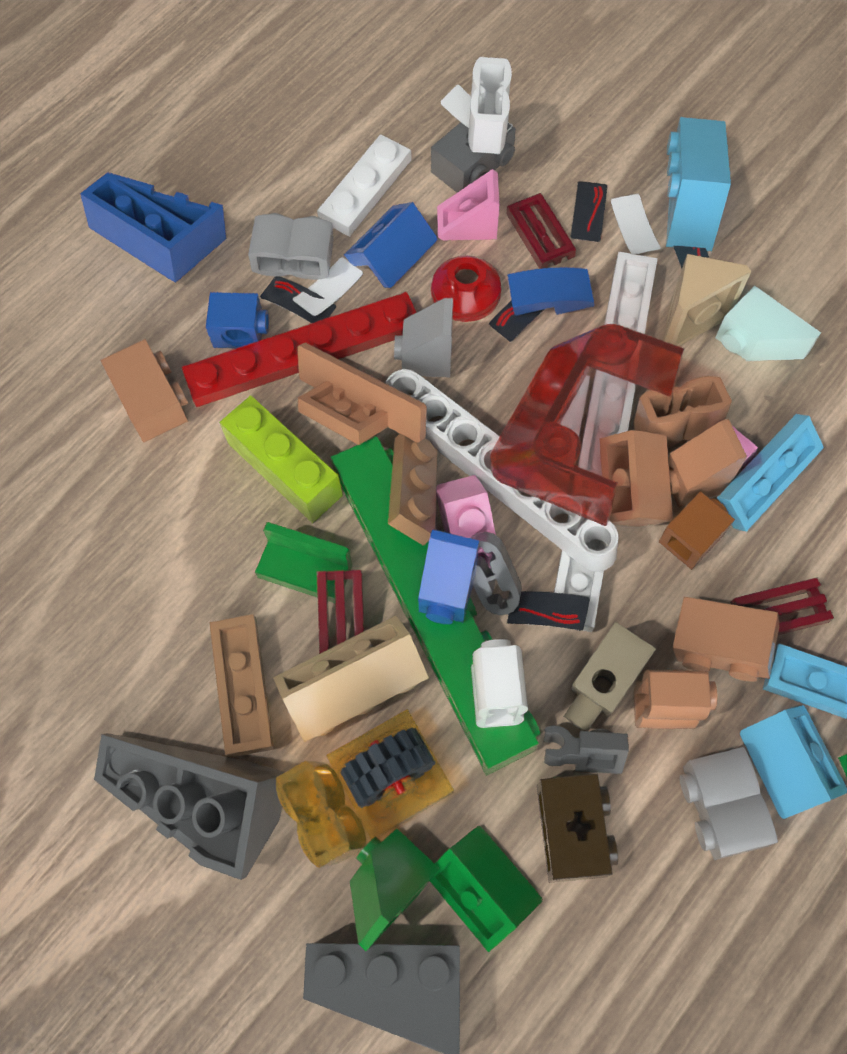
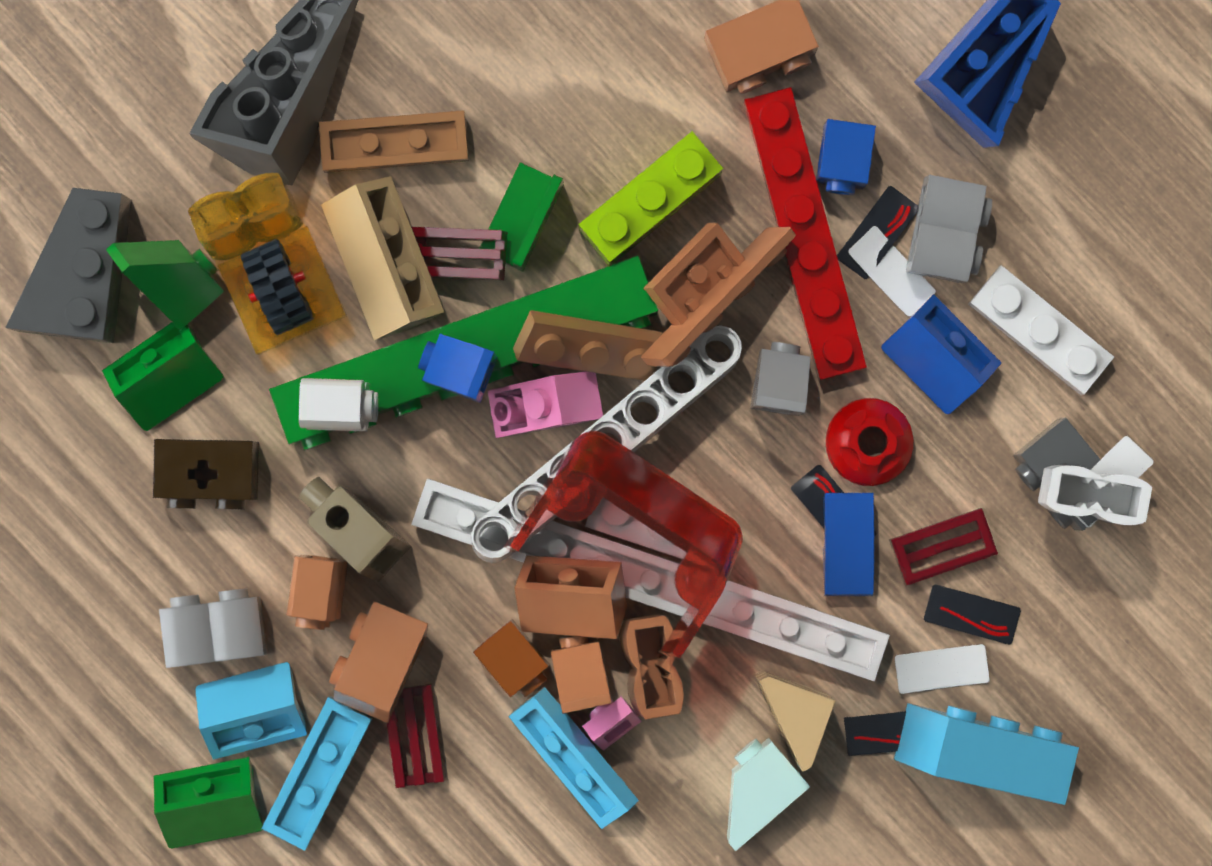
camera: 90 degrees right, 20 degrees up
(471, 212) = (973, 456): bright pink slope -> none
(501, 570) = (482, 431): dark grey beam -> none
(551, 610) = (437, 478): black sticker -> none
(591, 752) = (280, 506): dark grey plate -> none

